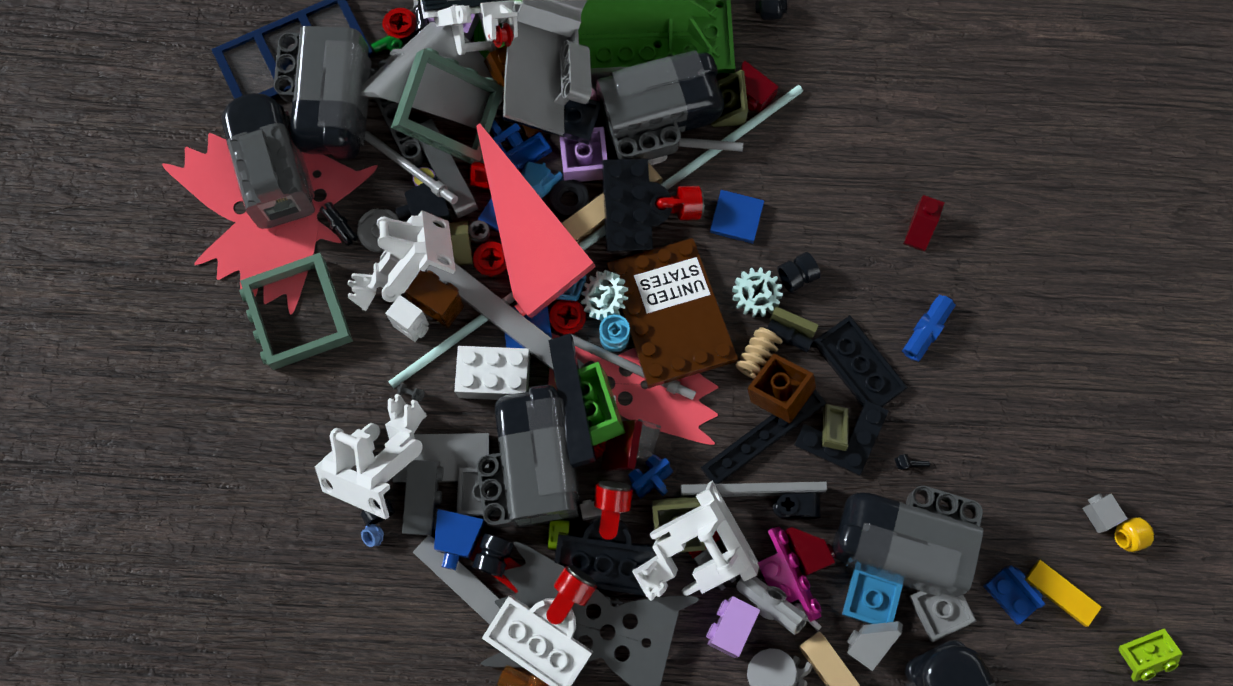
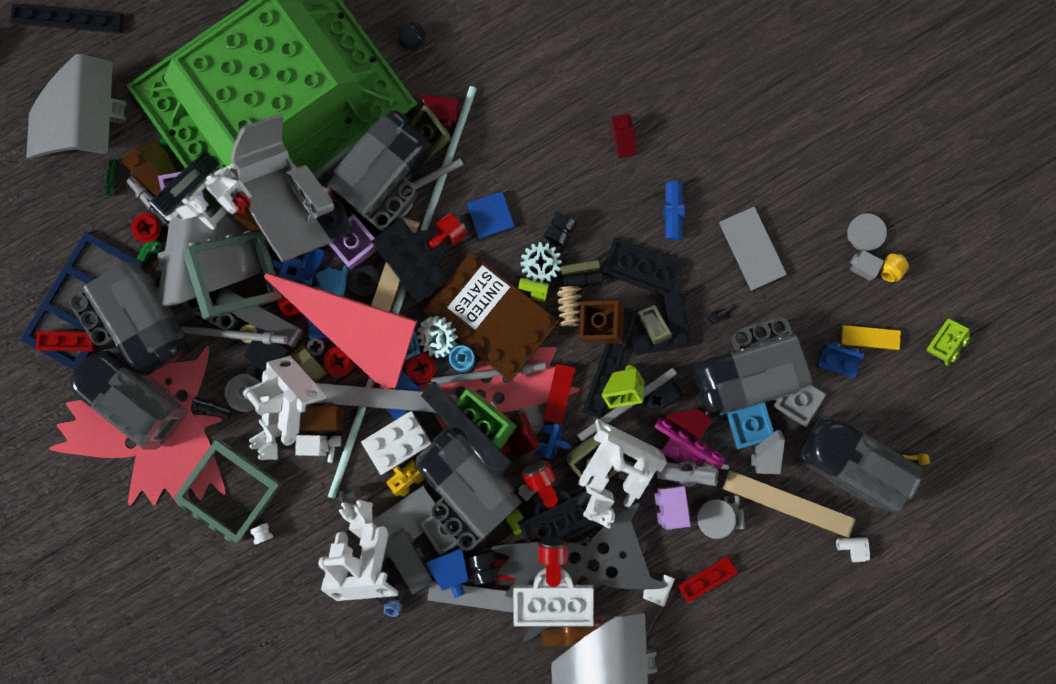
camera: 30 degrees left, 10 degrees up
(248, 74) = (64, 341): none -> red tile
(297, 373) = (261, 533): none -> white wheel
(431, 332) = (334, 441): none -> white hand
(468, 413) = (400, 483): none -> yellow hips
(689, 433) = (559, 394): none -> red tile
(737, 315) = (537, 289): none -> lime piece
(761, 469) = (624, 388): none -> lime torso
(989, 419) = (752, 248): none -> light grey tile
(1126, 480) = (866, 232): none -> light grey tile

